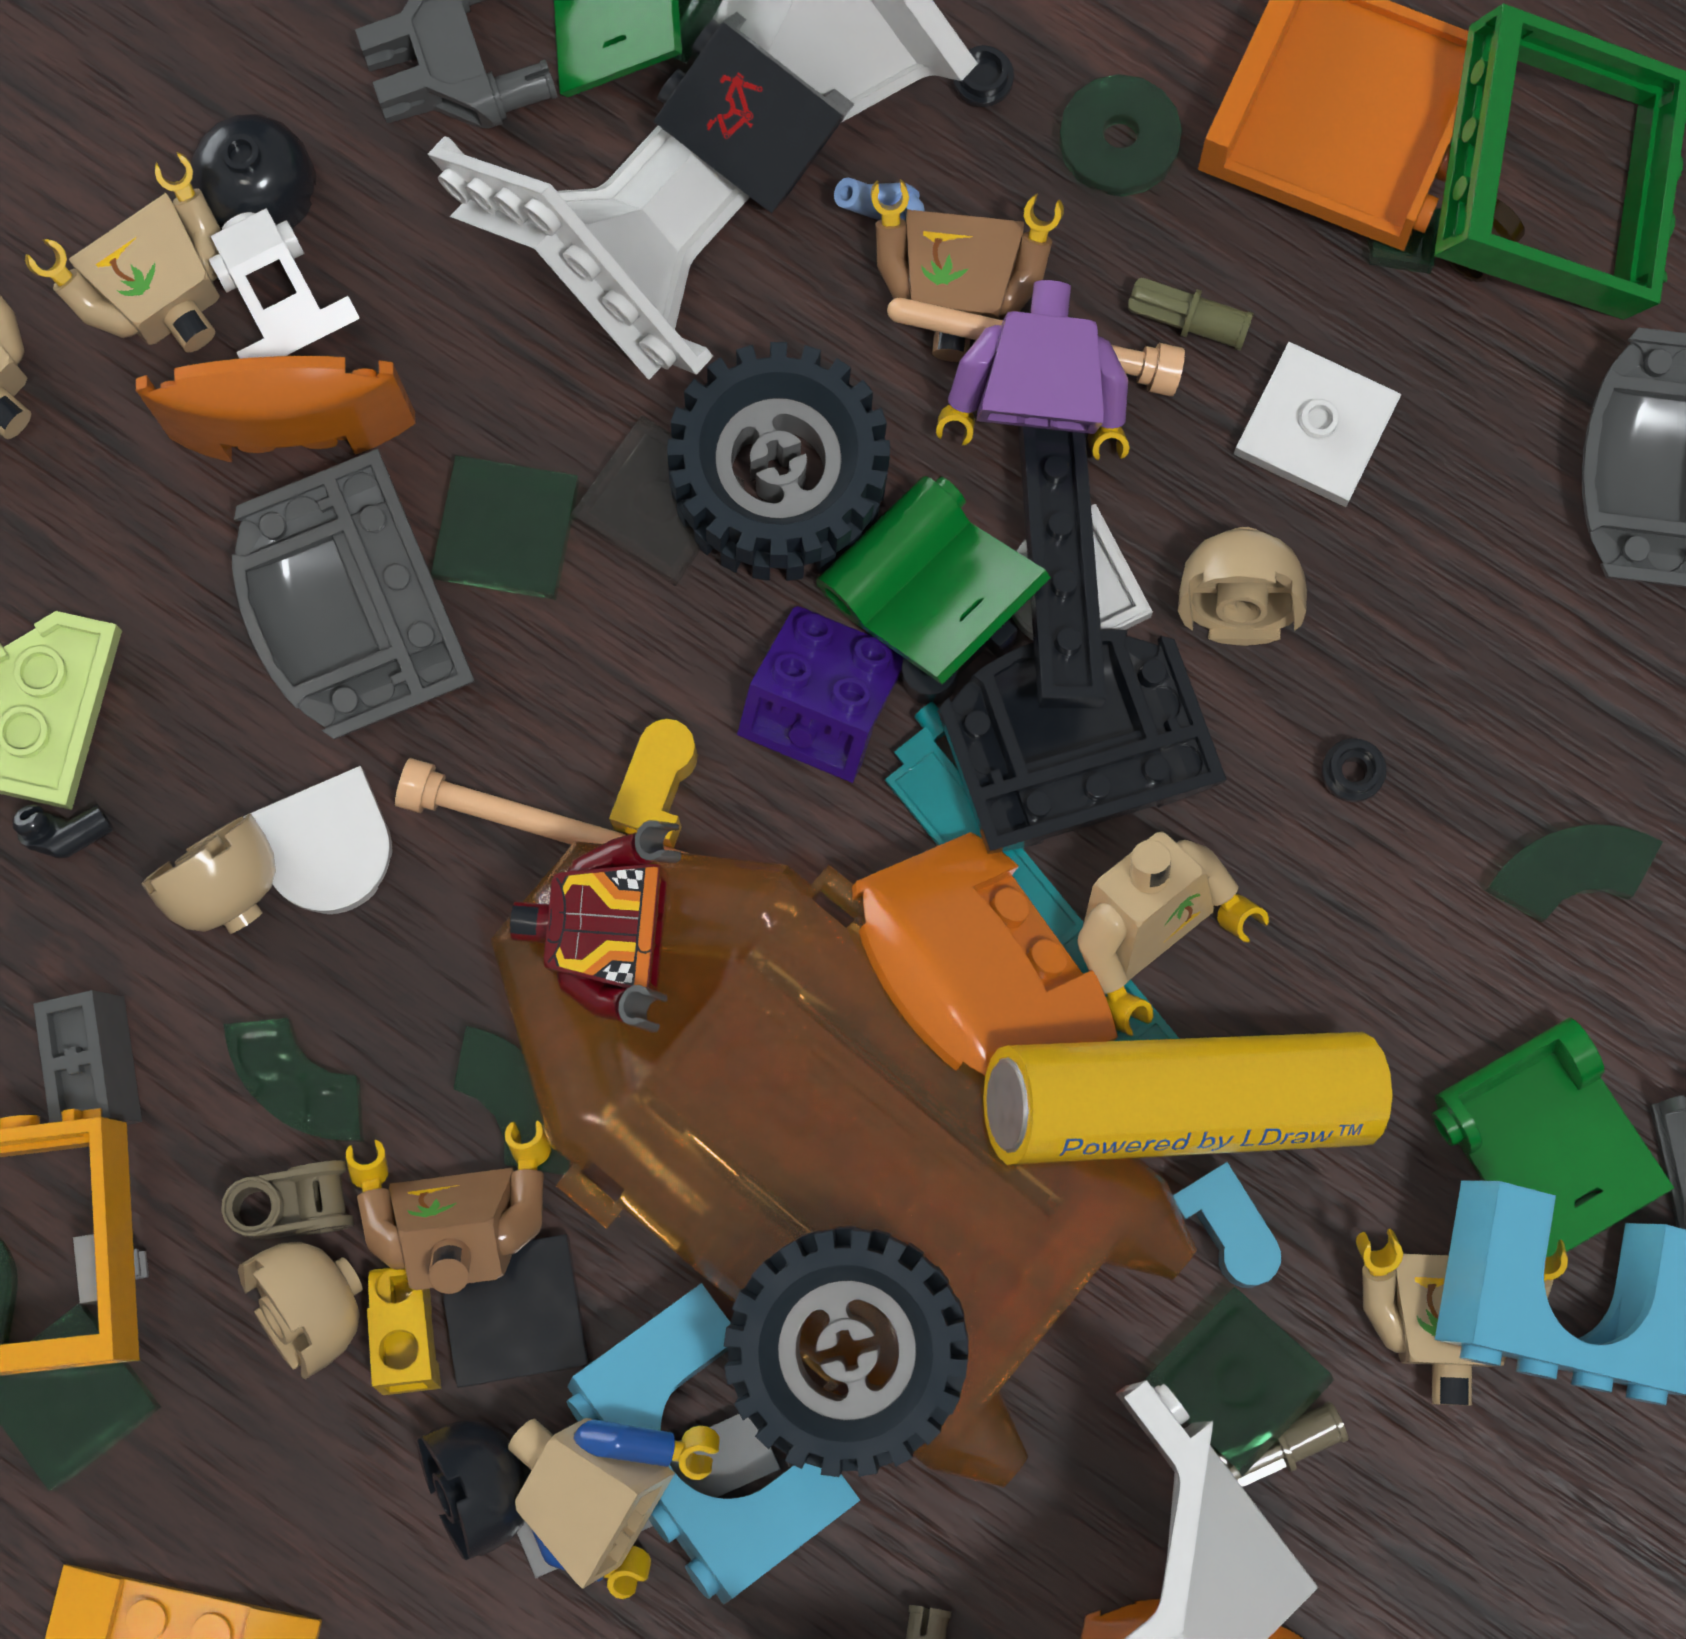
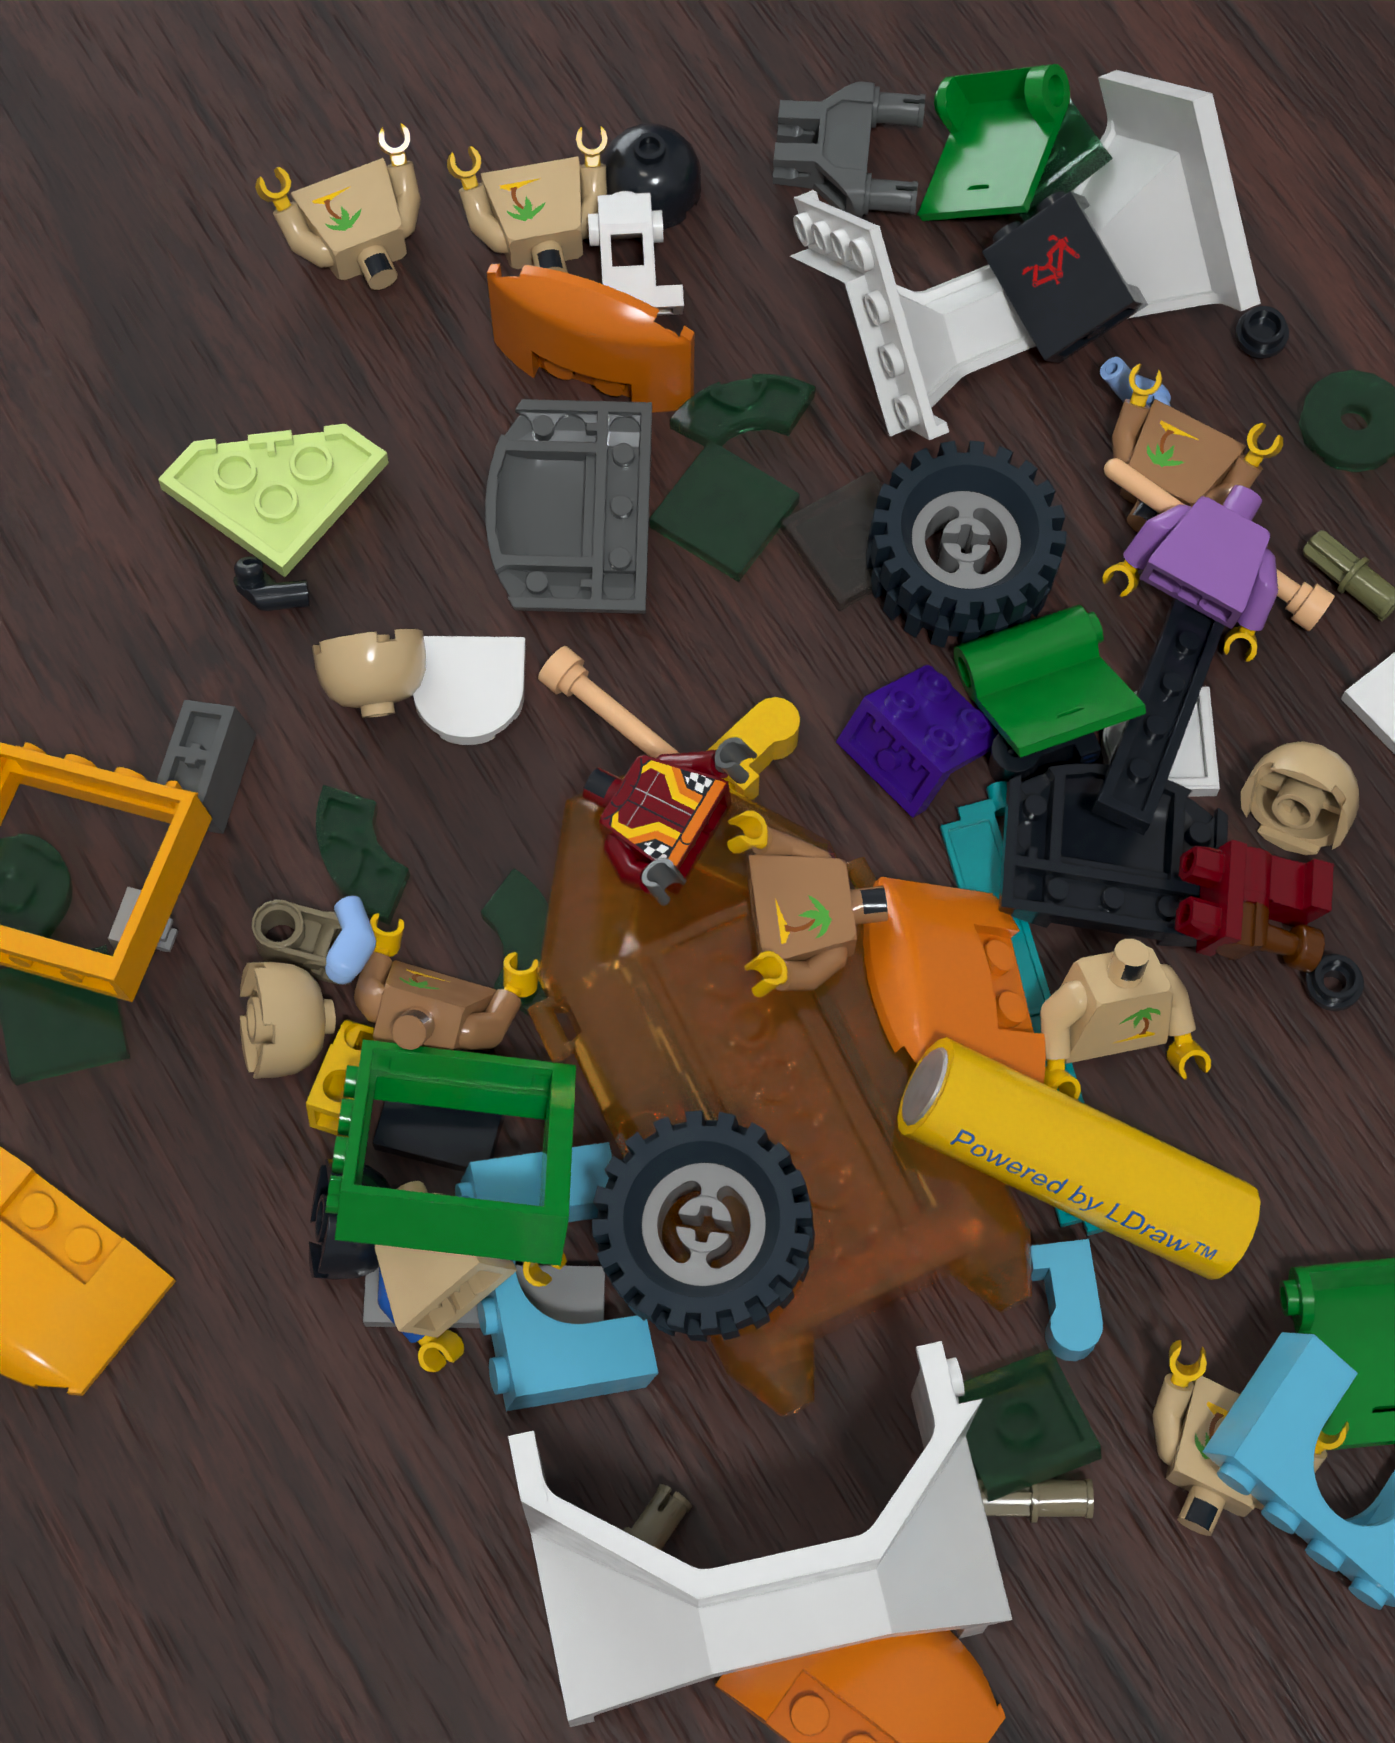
camera: 20 degrees right, 10 degrees down
(341, 1193) = (353, 944): none -> light blue arm
(470, 399) = (743, 406): none -> clear green tile
(526, 1292) = (445, 1221): none -> green window
(796, 968) = (800, 907): none -> medium nougat torso
(1224, 723) = (1243, 891): none -> dark red hips

